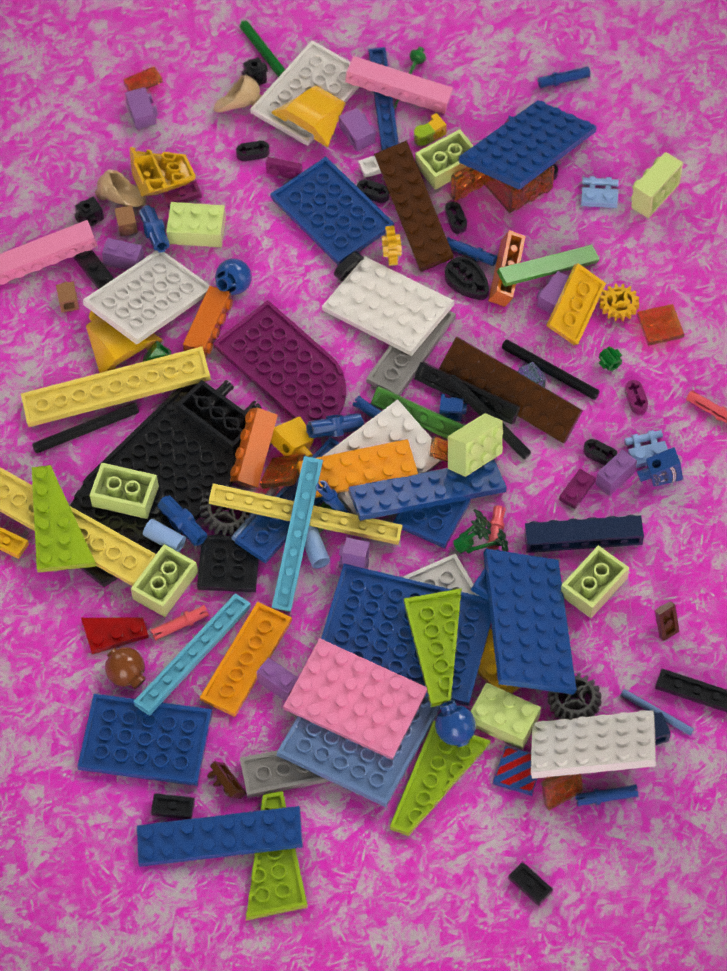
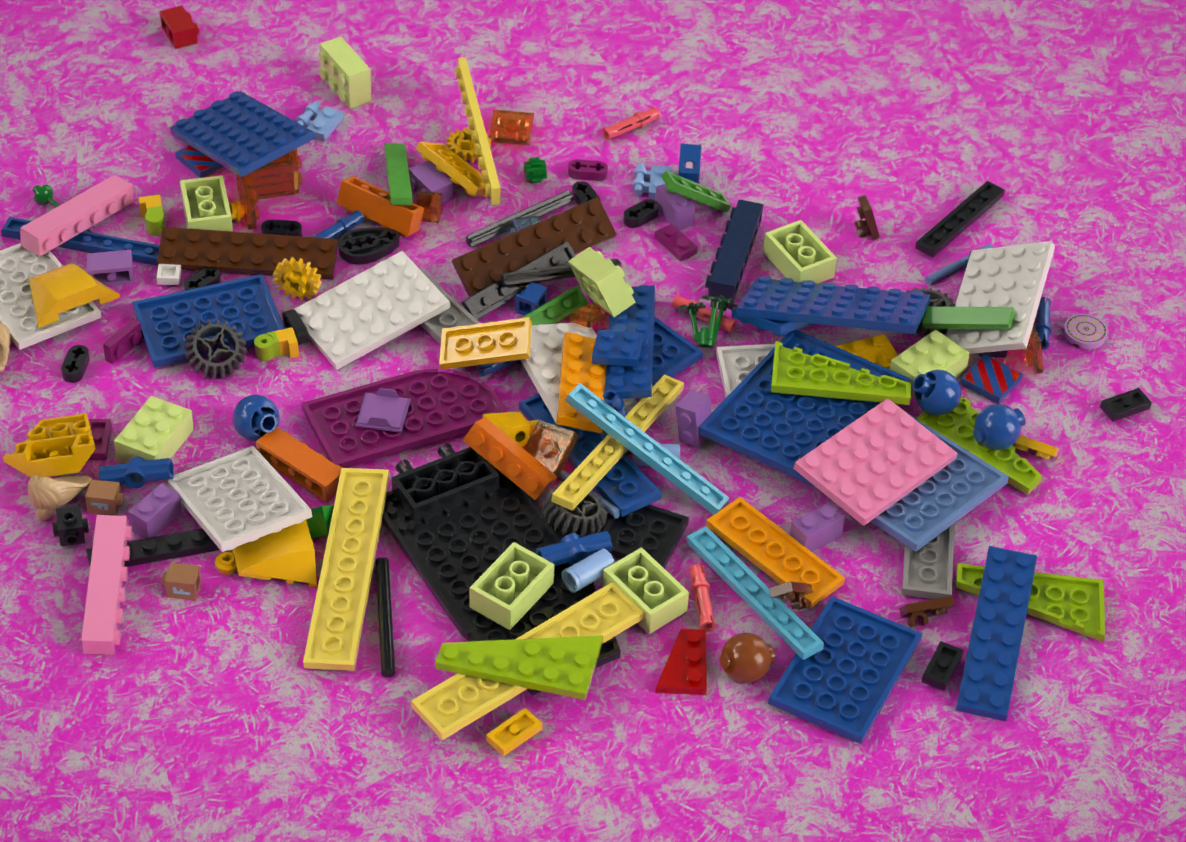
camera: 75 degrees left, 15 degrees down
(193, 677) = (792, 592): none -> reddish brown plate
(279, 353) = (383, 411): none -> medium lavender piece
(285, 221) = (198, 340): none -> dark grey gear
(325, 261) = (276, 344): none -> leg
(334, 425) = (510, 390): blue piece -> none
(370, 390) = (485, 343): none -> yellow plate
(399, 479) = (617, 348): none -> blue plate
(439, 782) = (998, 426): none -> blue brick
(446, 820) = (1043, 450): none -> yellow plate
(529, 304) = (432, 205): none -> clear orange panel
(552, 725) = (968, 318): none -> bright green tile
(567, 76) = (152, 105): blue pin -> none
(598, 405) = (578, 191): none -> black beam
(615, 833) = (1085, 331): none -> lavender tile
(626, 297) = (478, 132): none -> light yellow plate
(626, 479) = (695, 191): none -> bright green plate
(662, 56) = (179, 27): none -> red brick

